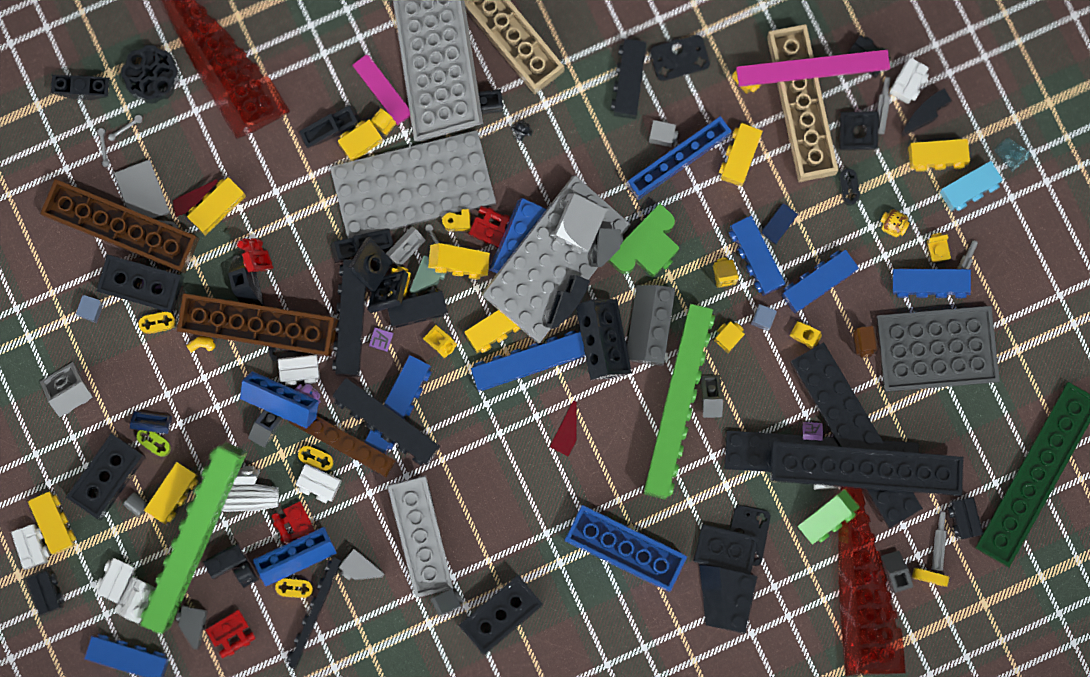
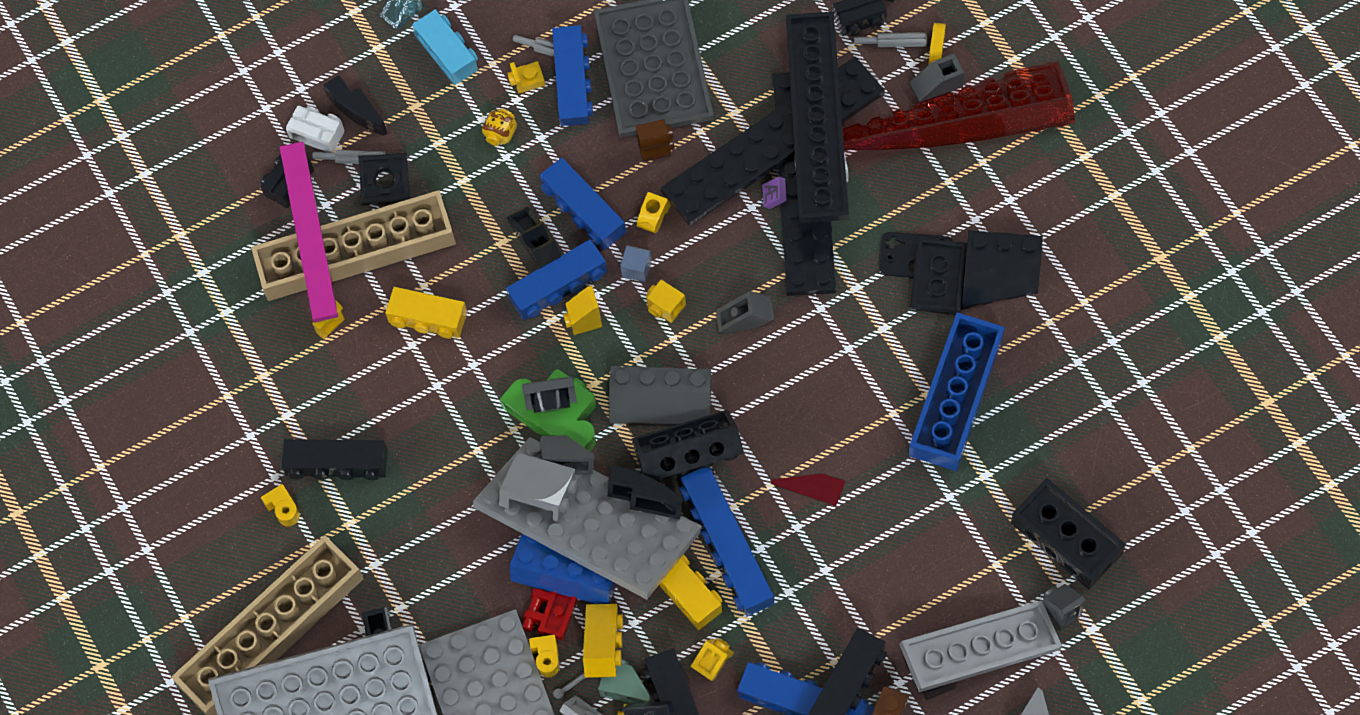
camera: 85 degrees left, 15 degrees down
(521, 129) = (414, 586): black plant -> none
(595, 40) = (284, 505): none -> yellow leg
(653, 238) = (549, 395): none -> piece
(663, 133) = (405, 410): light grey brick -> none
(678, 400) = (758, 347): bright green brick -> none
(679, 158) = (438, 384): blue brick -> none
(681, 62) = (308, 402): black axle -> none
(779, 224) = (511, 260): dark blue tile -> none
(794, 241) = (534, 237): none -> black slope
(829, 517) = (882, 156): brick -> none
(844, 187) = (457, 184): black beam -> none
(939, 154) = (408, 86): yellow brick -> none

